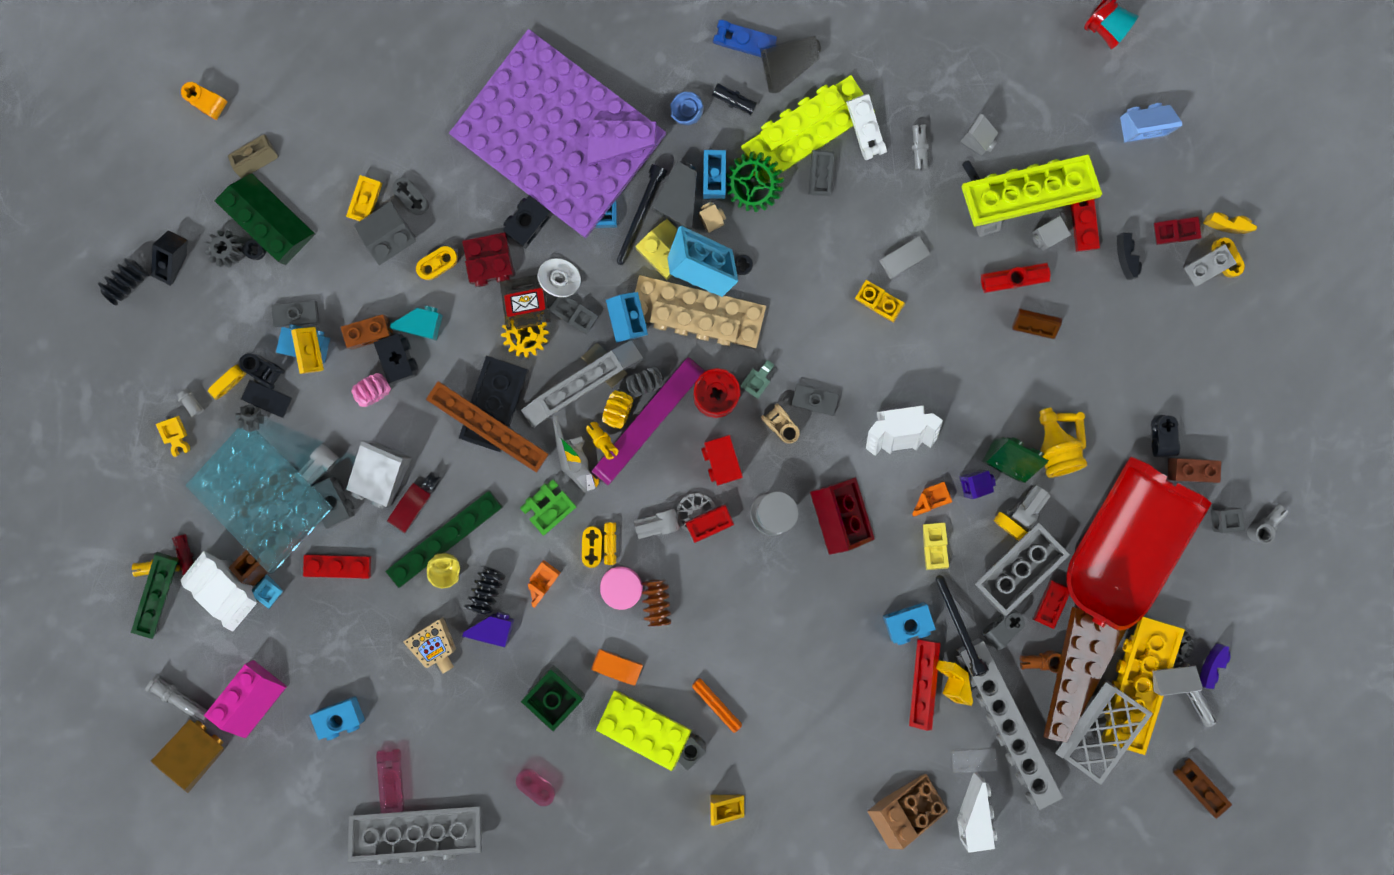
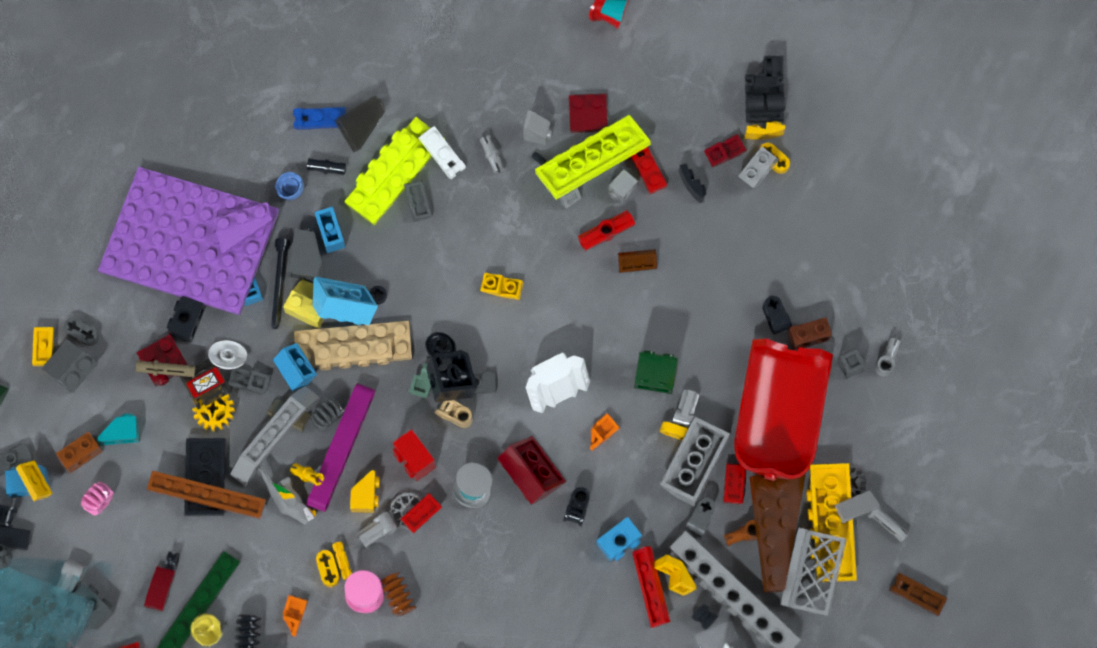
camera: 15 degrees left, 15 degrees down
(377, 473) = (124, 566): slope -> none
(387, 350) = (102, 458): black brick -> none
(437, 263) = (118, 376): yellow plate -> none
(486, 273) = (165, 368): none -> dark tan pin
(552, 512) = (284, 550): bright green plate -> none
(617, 409) = (311, 444): yellow gear -> none
(655, 482) = (364, 494): none -> yellow slope
(711, 217) = (338, 264): tan plate -> none
(722, 382) = (392, 393): red wheel -> none
(737, 178) = (363, 207): green gear -> none
(790, 383) = (449, 369): none -> black brick
(876, 573) = (577, 508): none -> black piece
(904, 257) = (510, 244): light grey slope -> none
(935, 546) = (619, 469): light yellow slope -> none
(970, 735) = (705, 616): none -> black wheel
(977, 484) = (634, 404): dark purple slope -> none
(977, 665) = (686, 551): black piece -> none
(1041, 135) = (587, 113): none -> dark red plate
(1059, 447) = (693, 354): yellow piece -> none
(1149, 122) = (669, 75): light blue slope -> none
(1217, 658) = (889, 482): dark purple slope -> none
(1247, 181) = (764, 93): none -> black plate

